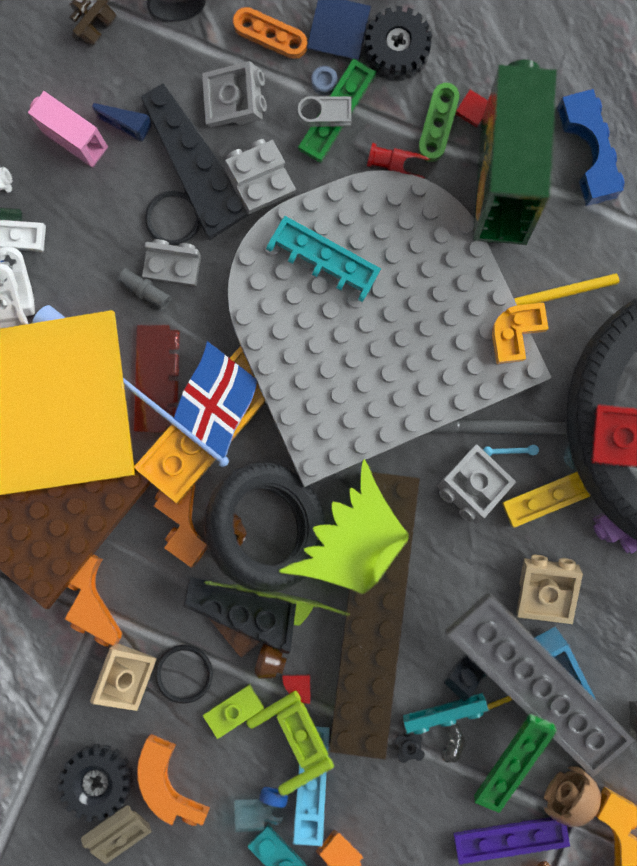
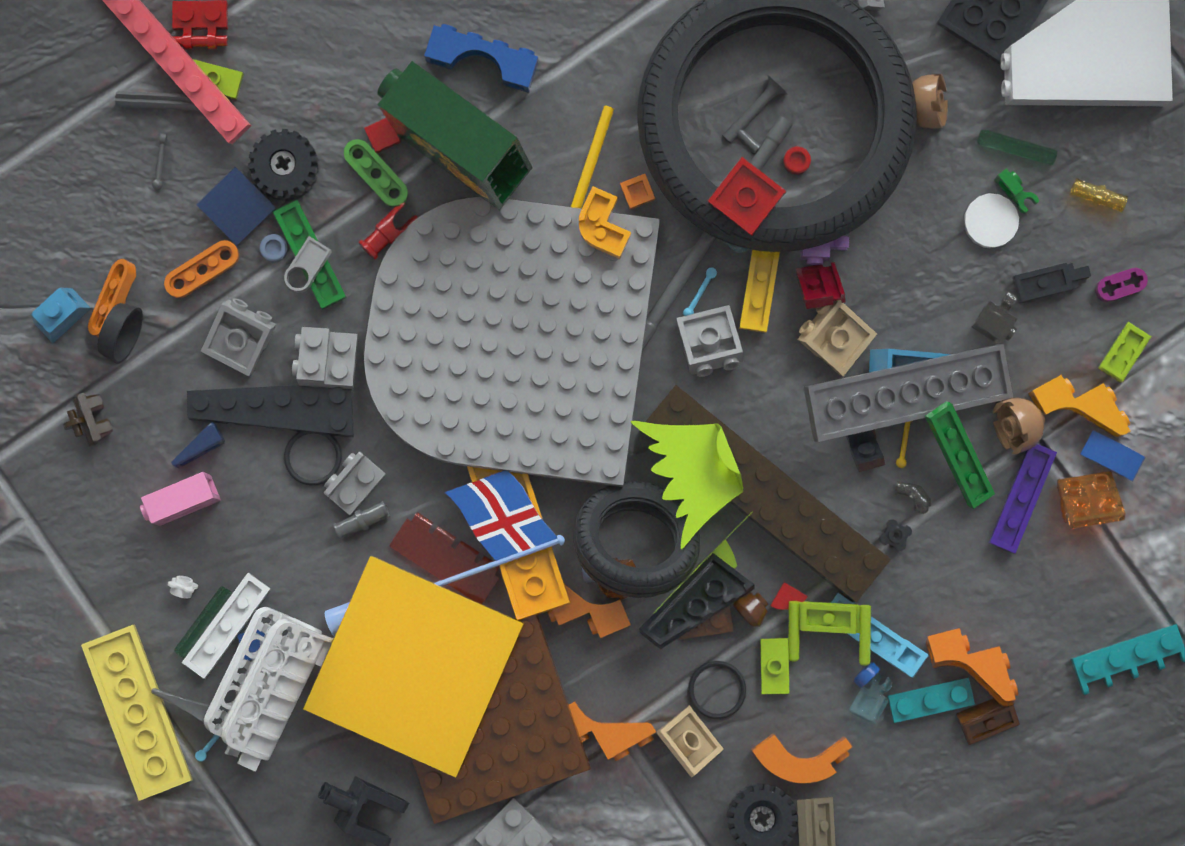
camera: 65 degrees left, 0 degrees up
(325, 256) = (437, 346): teal hinge -> none
(445, 714) = (886, 487): teal plate -> none
(562, 345) = (637, 191): none -> orange plate
(583, 549) = (820, 285): none -> dark red plate

